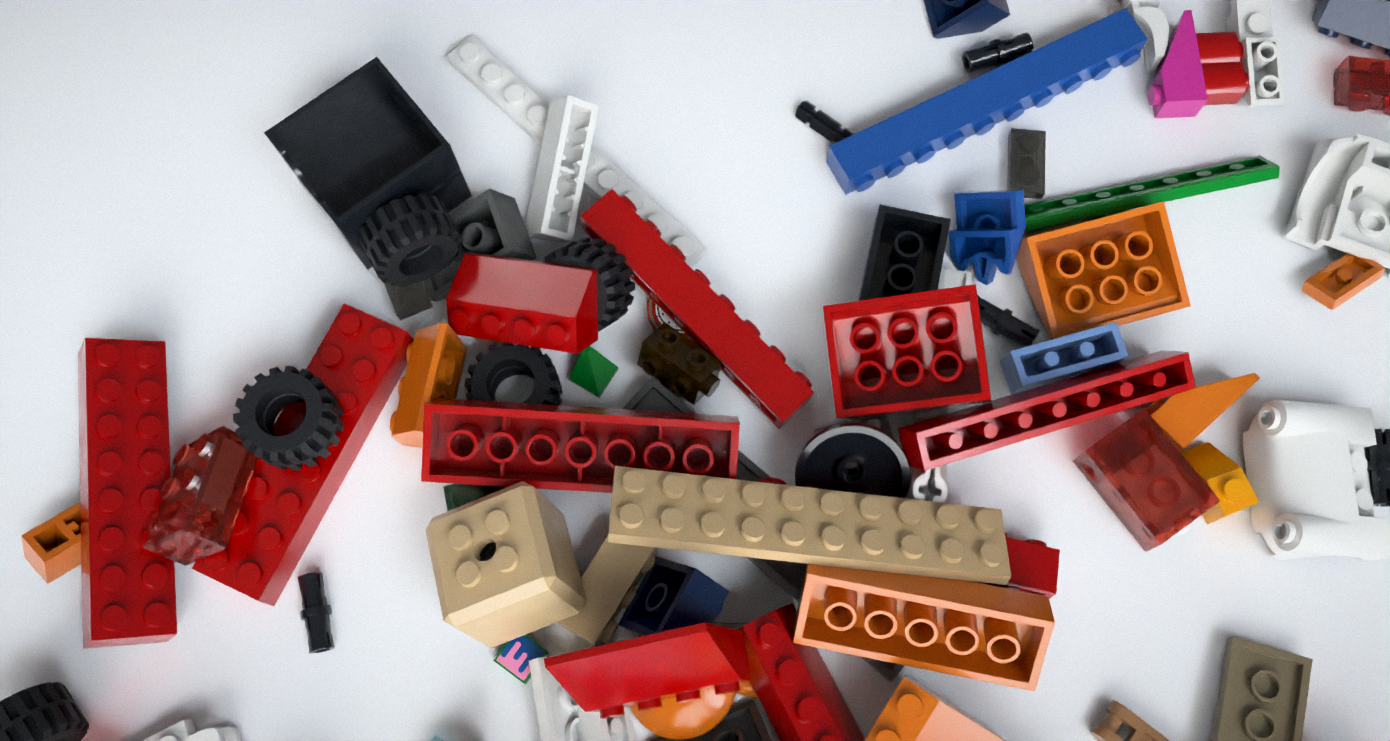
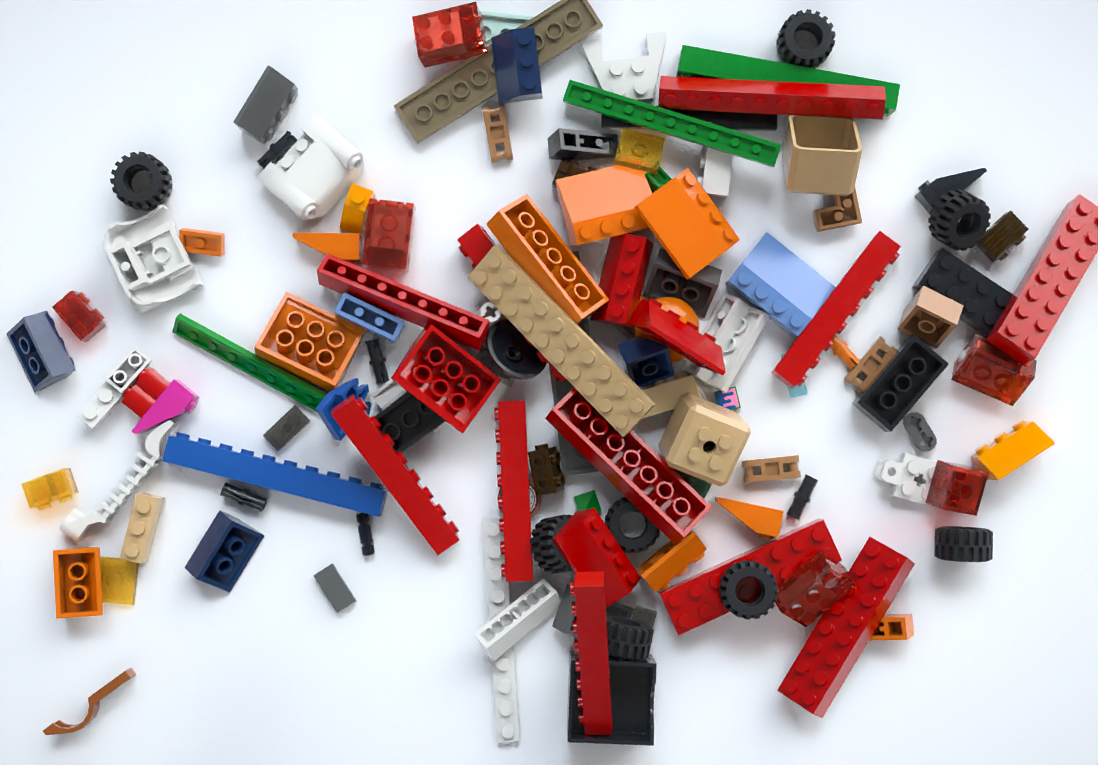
camera: 145 degrees left, 15 degrees up
(356, 533) = (758, 518): none -> orange slope
(386, 614) = (771, 469): none -> medium nougat plate
(430, 164) = (593, 652): none -> red brick
(803, 45) = (335, 588): none -> dark grey tile
(861, 197) = (395, 474): none -> red brick

